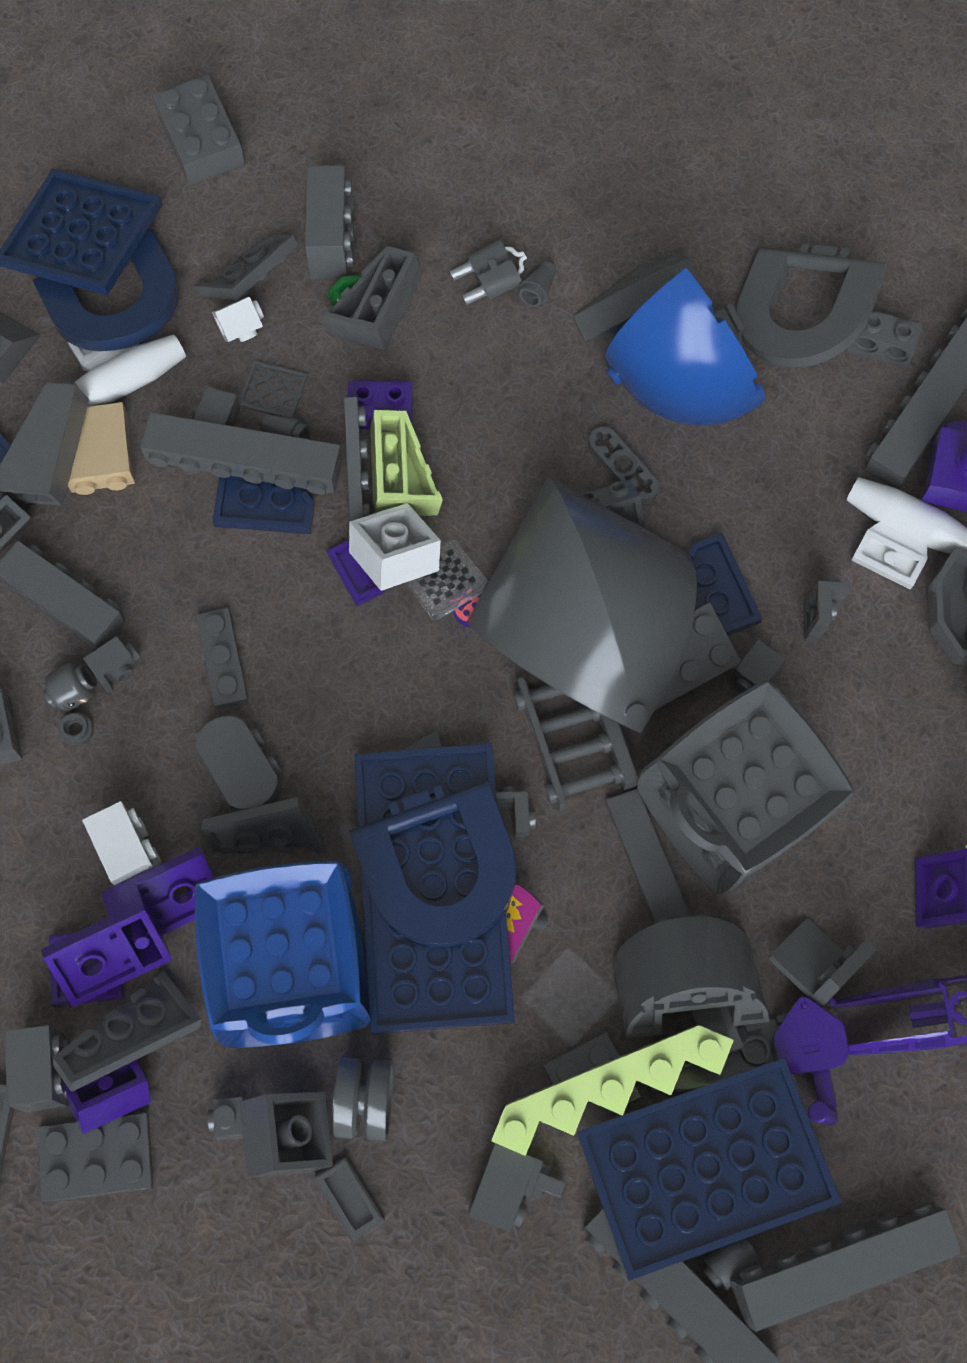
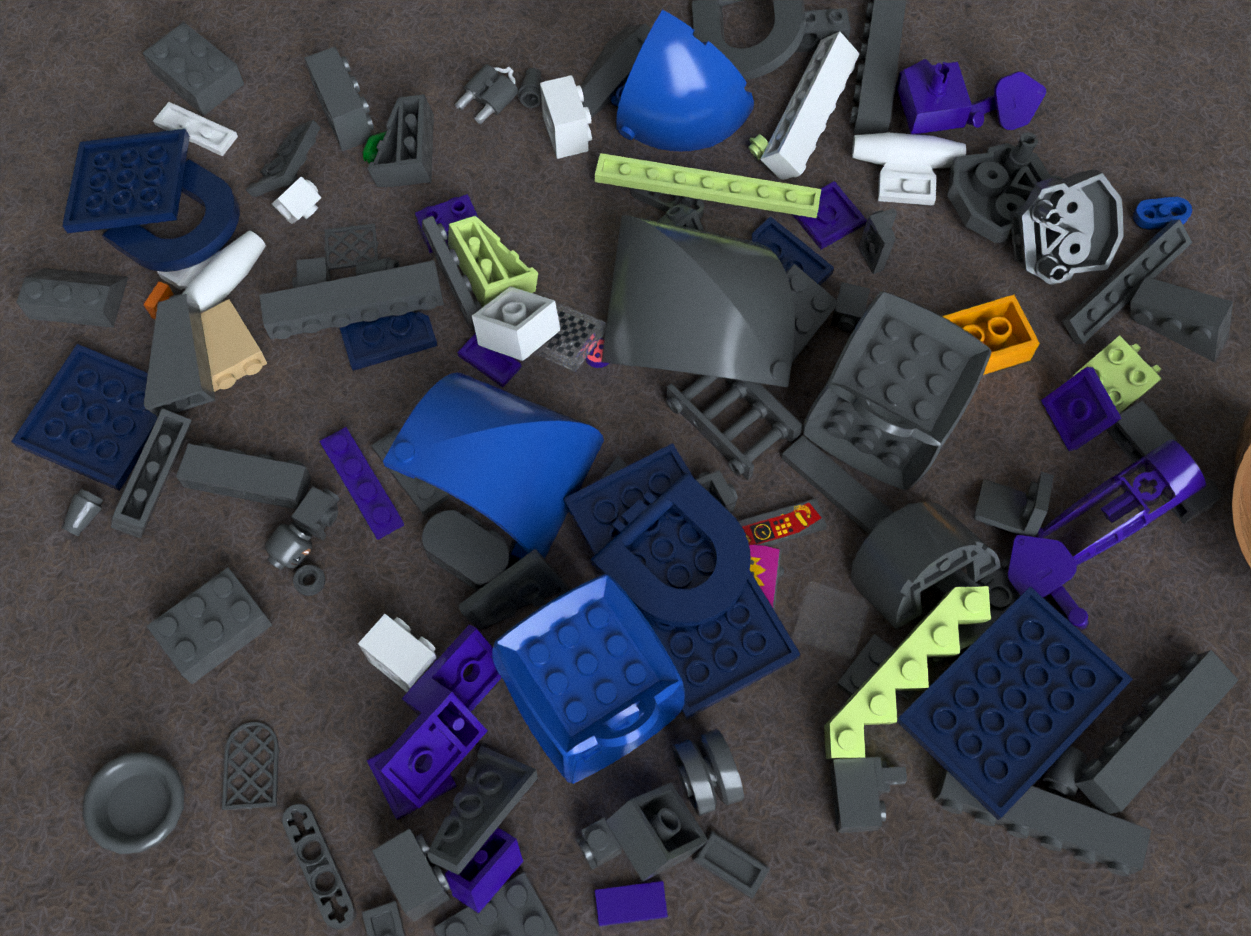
camera: 25 degrees left, 5 degrees down
(57, 371) = (160, 293): none -> orange plate
(170, 650) = (362, 483): none -> dark purple plate
(175, 196) = (201, 130): none -> white tile
(234, 1191) = (631, 903): none -> dark purple tile
(303, 684) = (497, 456): none -> blue panel
(554, 334) = (565, 116): none -> white brick
(566, 874) = (784, 524): none -> tile
(670, 472) = (708, 185): none -> yellowish green plate
(751, 448) = (758, 146): none -> yellowish green plate
(787, 554) = (834, 219): none -> dark purple tile
(828, 423) = (810, 107): none -> white brick
(887, 764) = (1002, 328): none -> light orange brick

